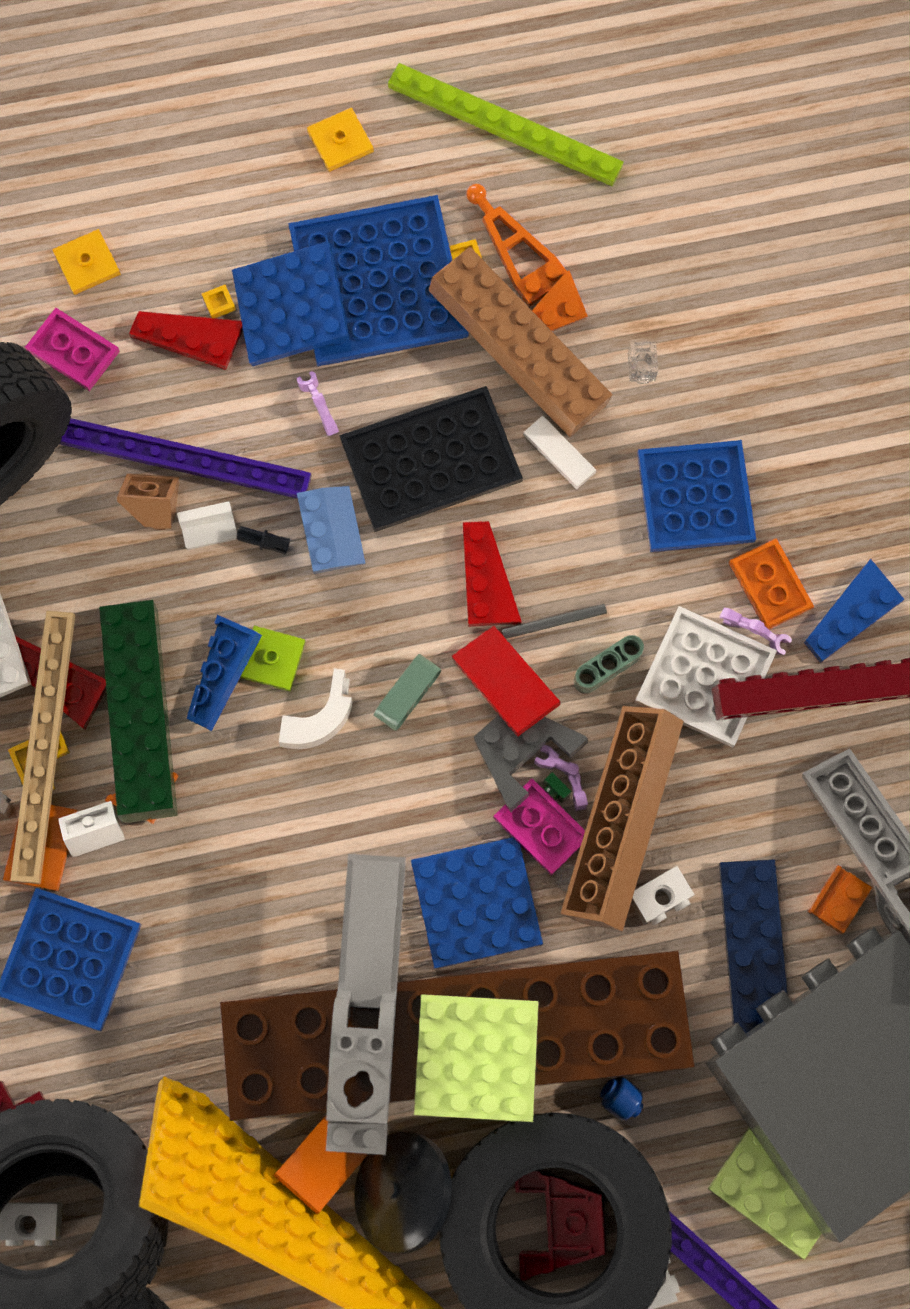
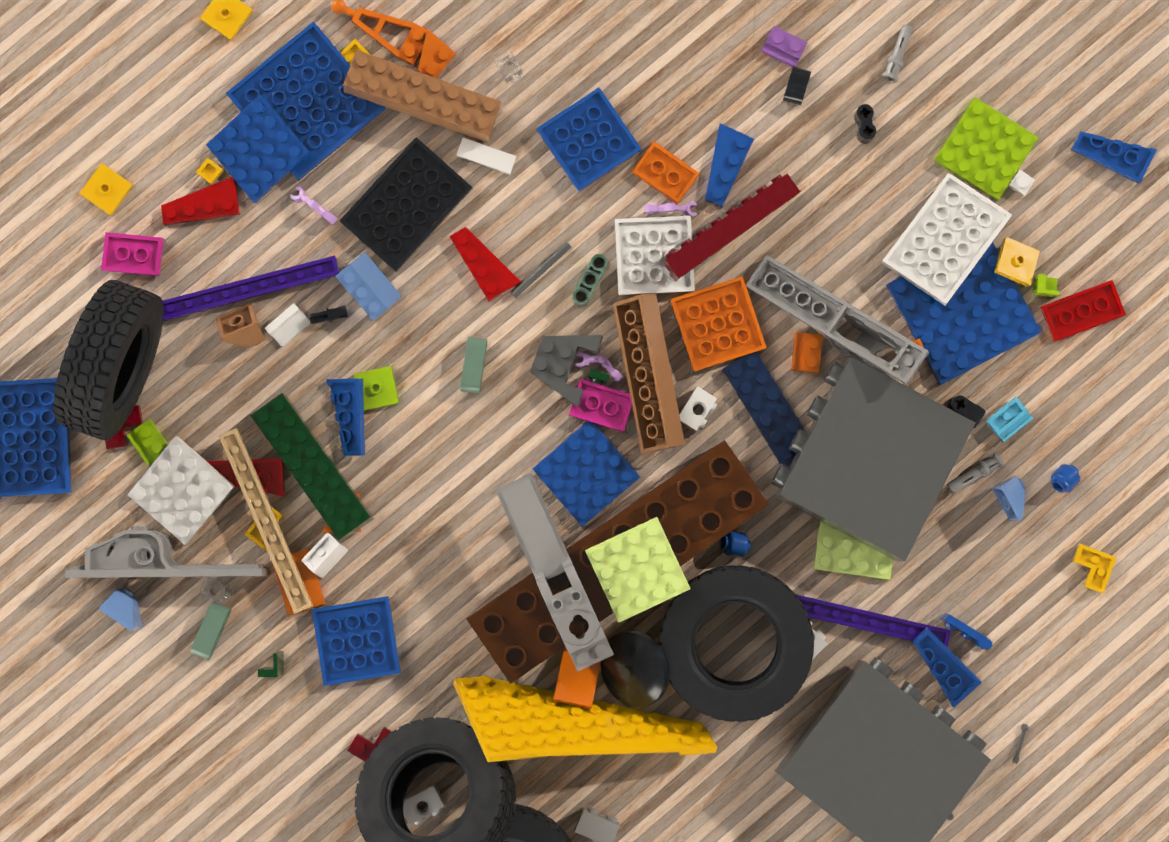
camera: 30 degrees left, 10 degrees up
(319, 728) = (432, 415): white arch -> none
(506, 680) = (531, 325): red tile -> none
(573, 1223) = (744, 632): dark red wing -> none
(743, 803) = (718, 324): none -> orange plate

